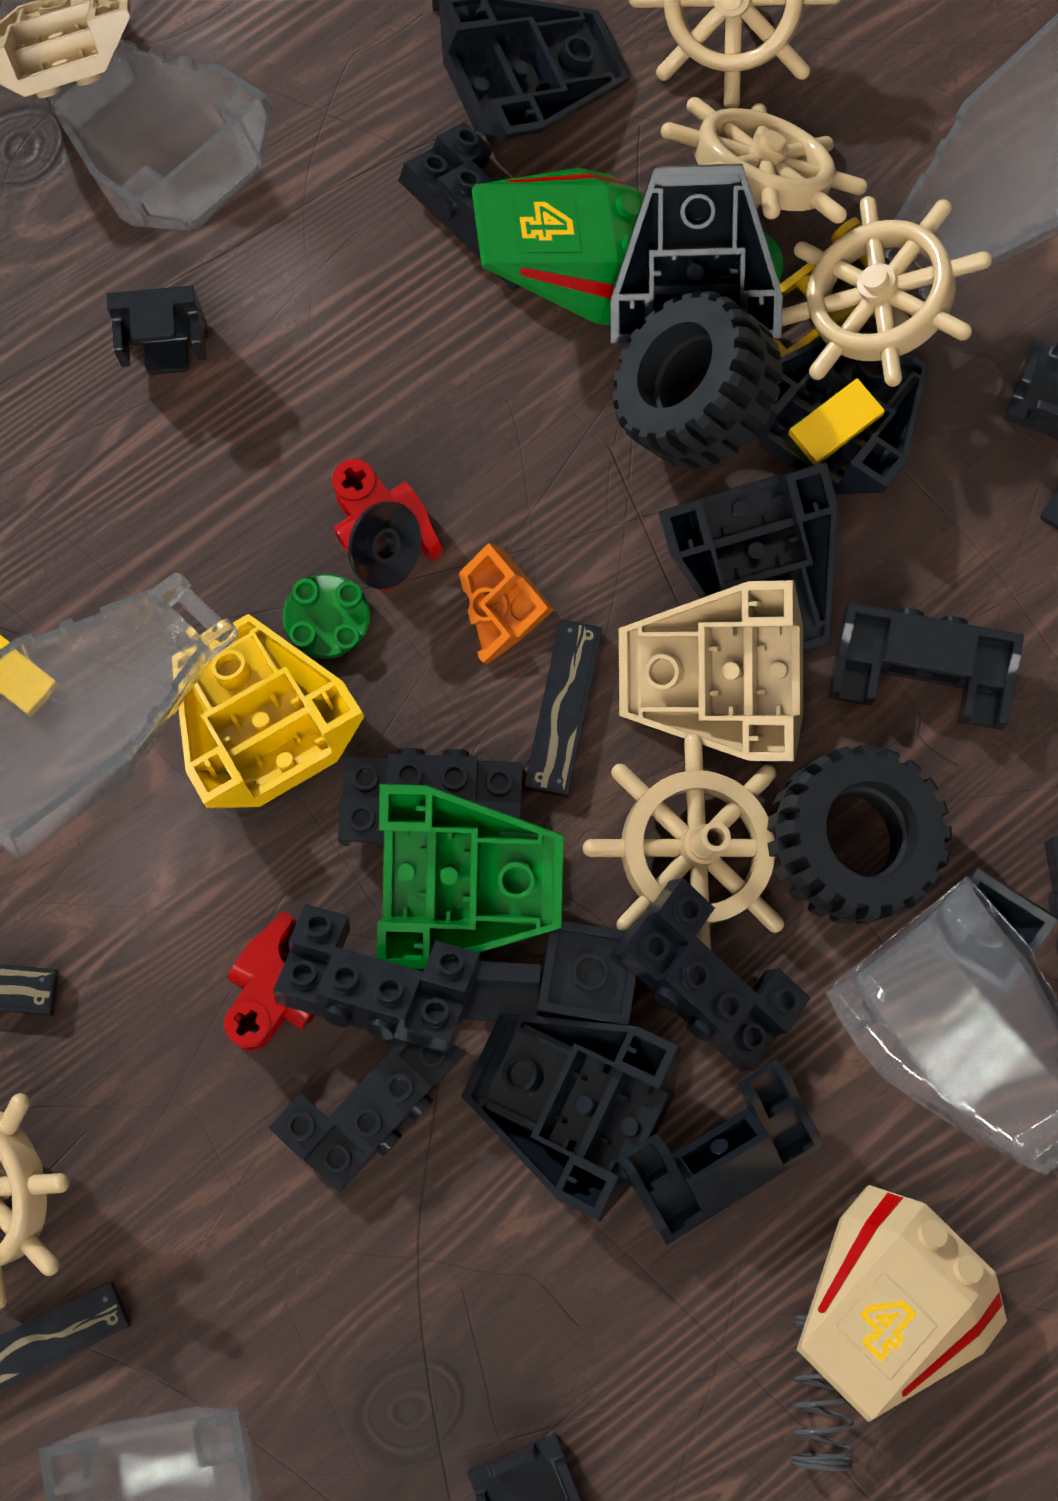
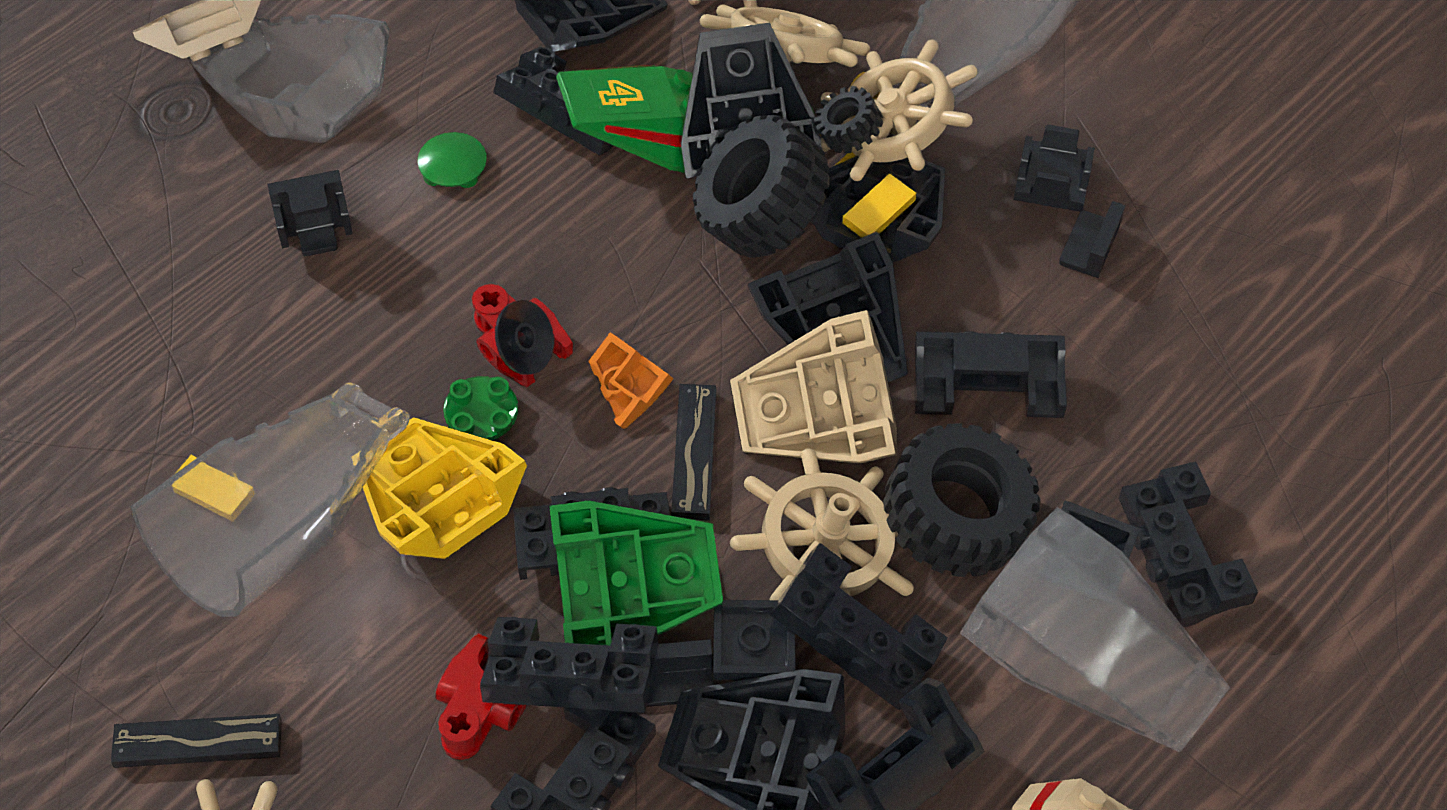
camera: 10 degrees left, 20 degrees down
(337, 268) = (452, 160): none -> green dish
(808, 284) = (841, 107): none -> black tyre

